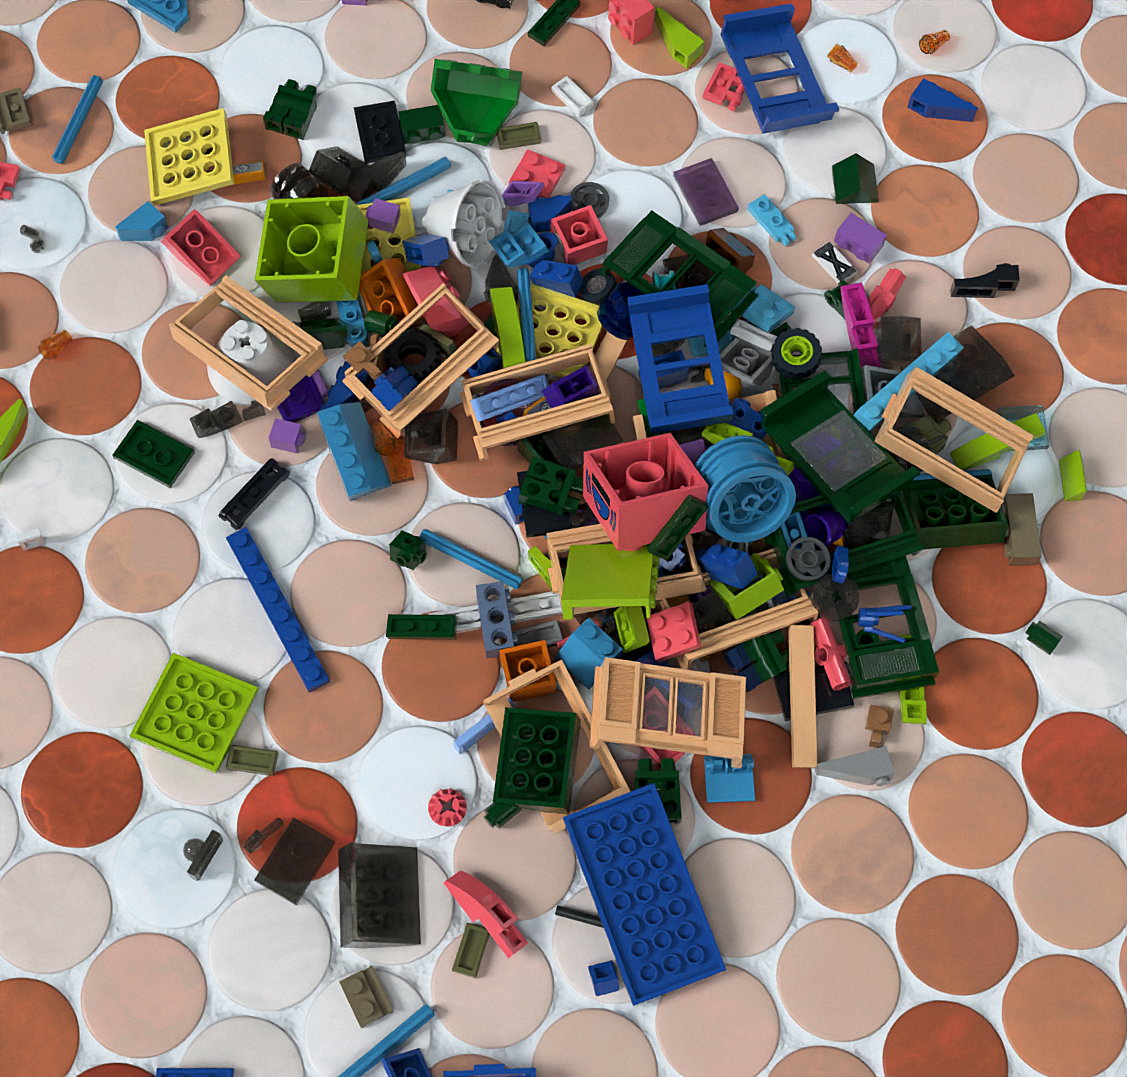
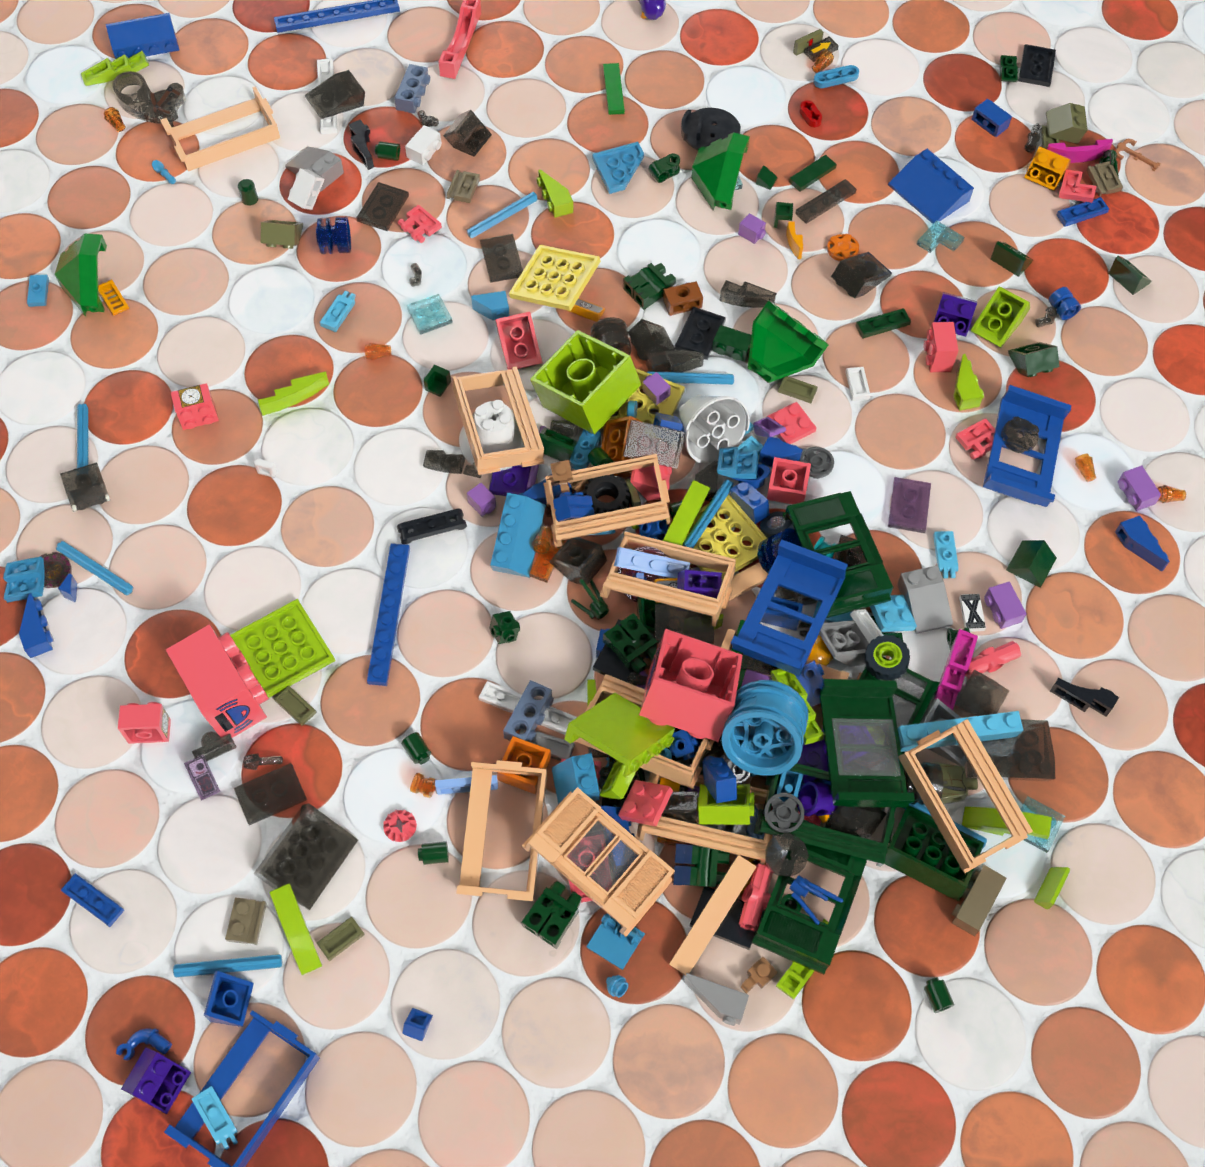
camera: 35 degrees right, 5 degrees down
(81, 272) = (429, 314): none -> clear light blue plate
(112, 167) = (501, 258): none -> clear smoke tile
(114, 876) = (144, 723): none -> coral brick
(122, 65) = (557, 196): none -> lime slope
(145, 338) = (437, 380): none -> dark green panel
(153, 453) = (387, 460): dark green tile -> none
(165, 785) = (219, 681): none -> coral brick
(215, 890) = (202, 777): none -> clear purple tile
(335, 114) = (682, 298): none -> dark orange brick
(400, 65) = (746, 295): none -> clear smoke slope
(409, 723) = (416, 748): none -> dark green brick
(421, 626) = (475, 687): dark green tile -> none
(423, 969) = (295, 929): none -> lime slope
(426, 272) = (650, 439): none -> clear smoke tile
(445, 753) = (423, 785): none -> clear orange wheel
(471, 559) = (546, 662): dark azure axle -> none
(483, 904) = (371, 916): coral slope -> none
(484, 473) = (598, 606): none -> dark green plant
(537, 760) = (481, 832): dark green slope -> none
(578, 916) = (438, 973): pearl dark grey bar -> none
(643, 894) = (486, 982): blue plate -> none
(677, 527) = (695, 725): dark green tile -> none
(730, 248) = (894, 555): reddish brown slope -> none
(760, 818) = (616, 985): none -> dark azure plate
(768, 52) = (1024, 427): none -> clear smoke plate
(785, 274) = (926, 598): none -> light grey slope
(840, 564) = (804, 831): blue tile -> none
(903, 51) = (1139, 488): none -> medium lavender brick

